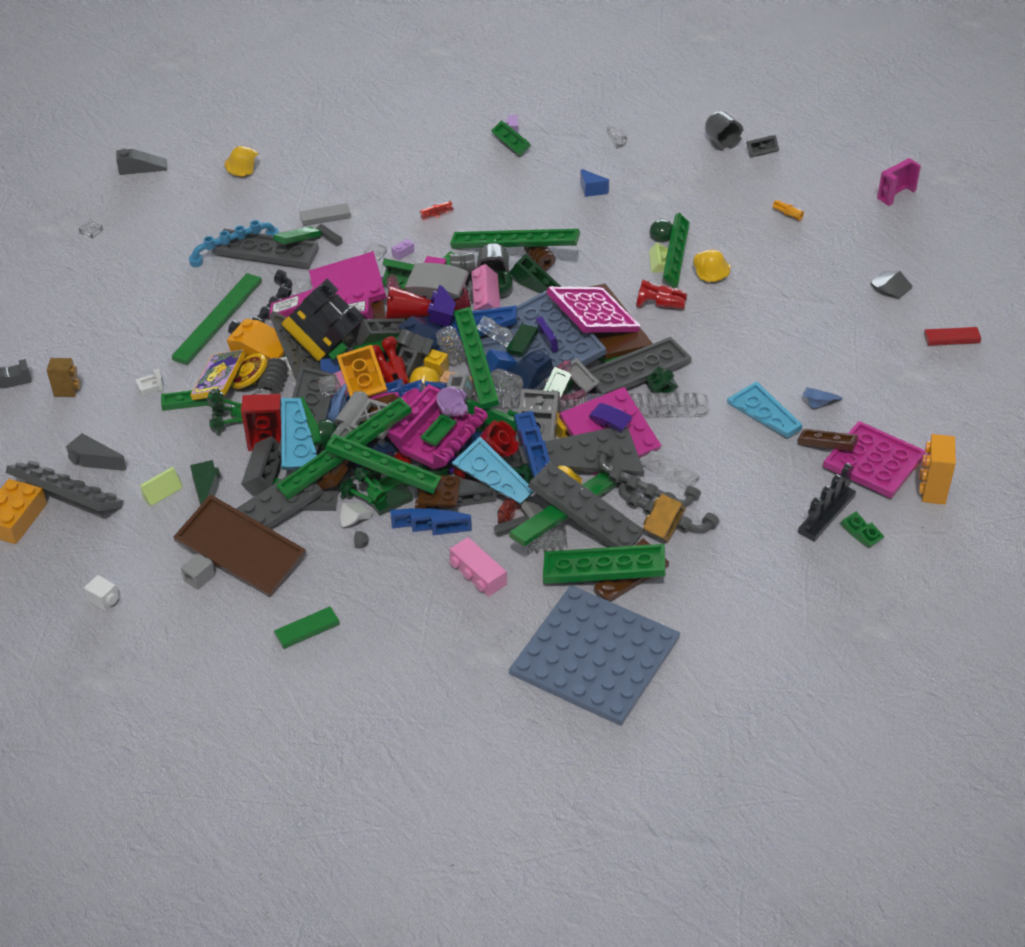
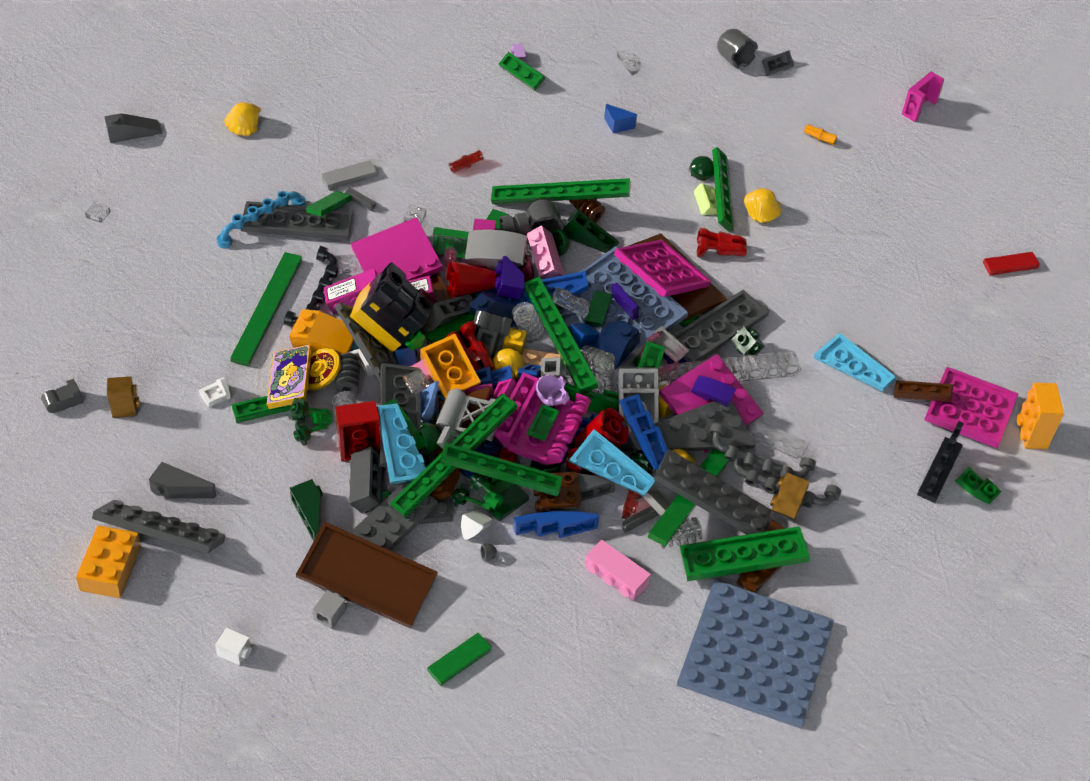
camera: 15 degrees left, 5 degrees up
(160, 486) = (262, 514): yellowish green slope -> none
(402, 249) = (442, 210): lavender piece -> none
(819, 398) = (902, 344): medium blue piece -> none
(892, 283) = (940, 209): dark grey slope -> none

